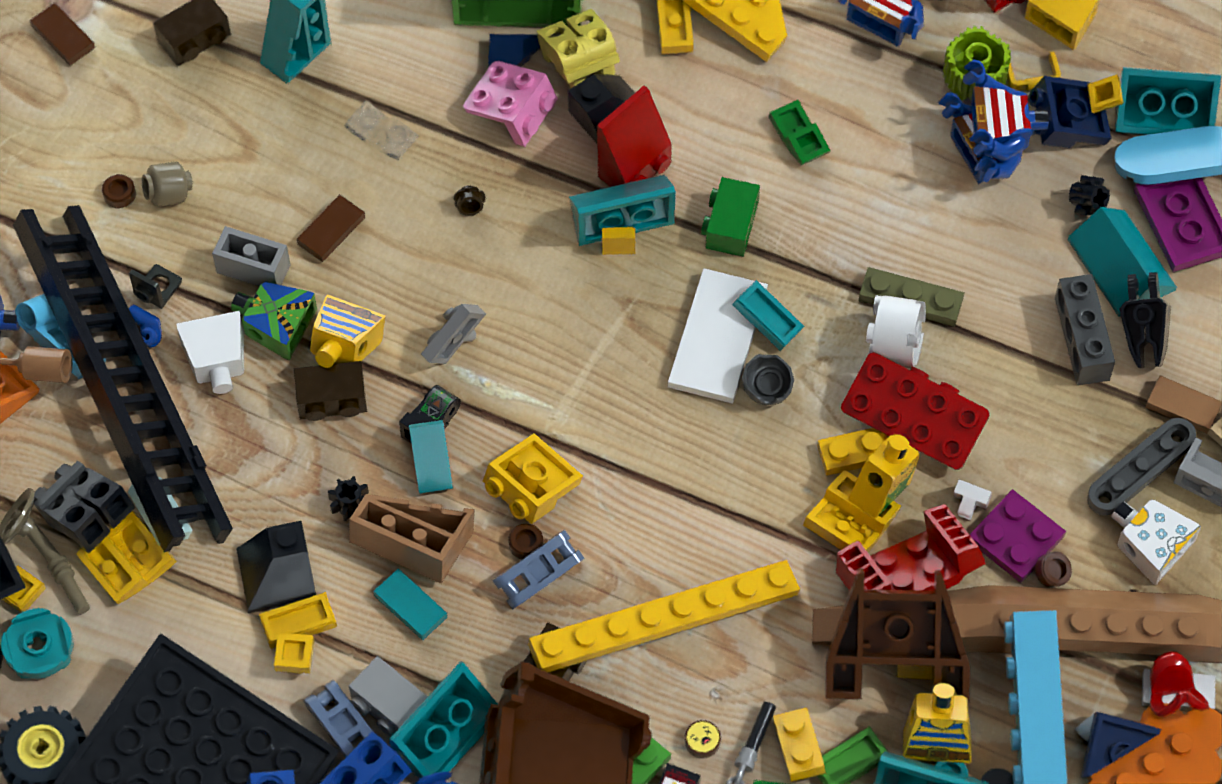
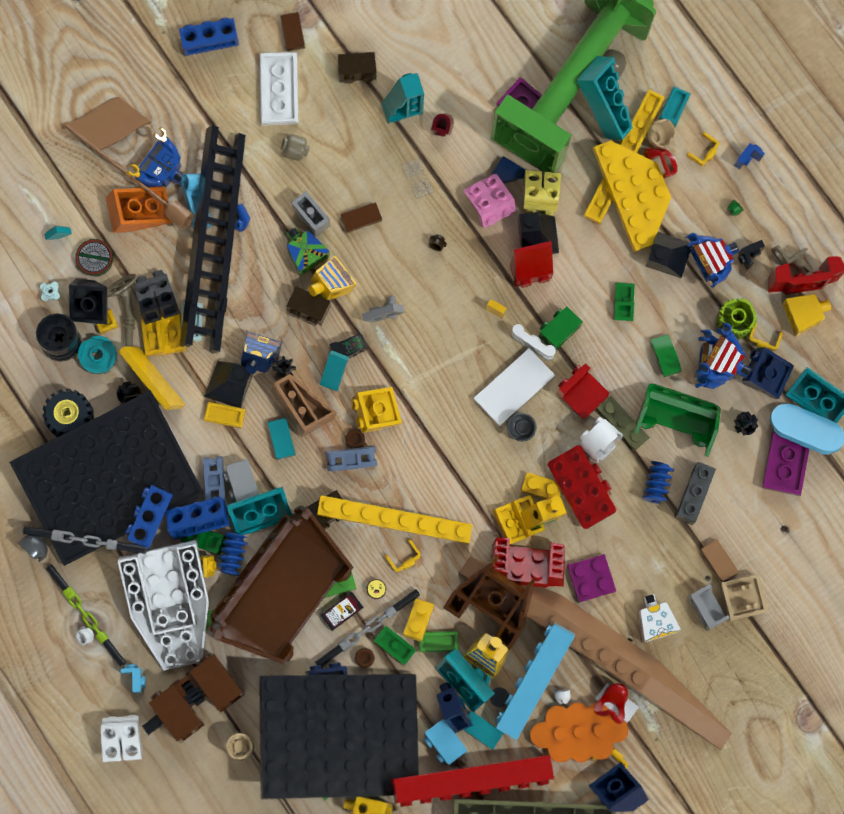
camera: 25 degrees right, 15 degrees up
(90, 121) = (279, 88): none -> white tile
(119, 191) = (270, 136): reddish brown tile -> none
(119, 667) = (127, 392): none -> black gear
(148, 623) = (152, 378): none -> yellow tile
(149, 290) = (251, 199): pearl dark grey bracket -> none
(214, 349) = (266, 251): white torso -> none
(294, 653) = (211, 432): yellow tile -> none
(296, 493) = (259, 353): none -> dark blue torso
(372, 37) = (443, 124): none -> dark red plate
(636, 204) = (508, 292): teal slope -> none
(694, 258) = (533, 343): none -> white plate
(726, 673) = (407, 564): none -> yellow piece
(768, 315) = (544, 392): teal tile -> none
(820, 39) = (668, 255): none -> black slope
(823, 284) = (582, 391): none -> red bracket
(912, 170) = (666, 355): none -> green slope
(971, 497) = (581, 547): white tile -> none
(991, 235) = (680, 413): none -> green windscreen
(1020, 345) = (657, 482): none -> blue piece
(1053, 569) = (597, 606): reddish brown tile -> none
(1105, 93) = (790, 374): yellow slope -> none
(1112, 251) = (740, 466): teal slope -> none
(1112, 739) = (566, 710): dark blue tile -> none
(1141, 466) = (675, 580): dark grey plate -> none
(1146, 321) = (727, 508): black hinge -> none

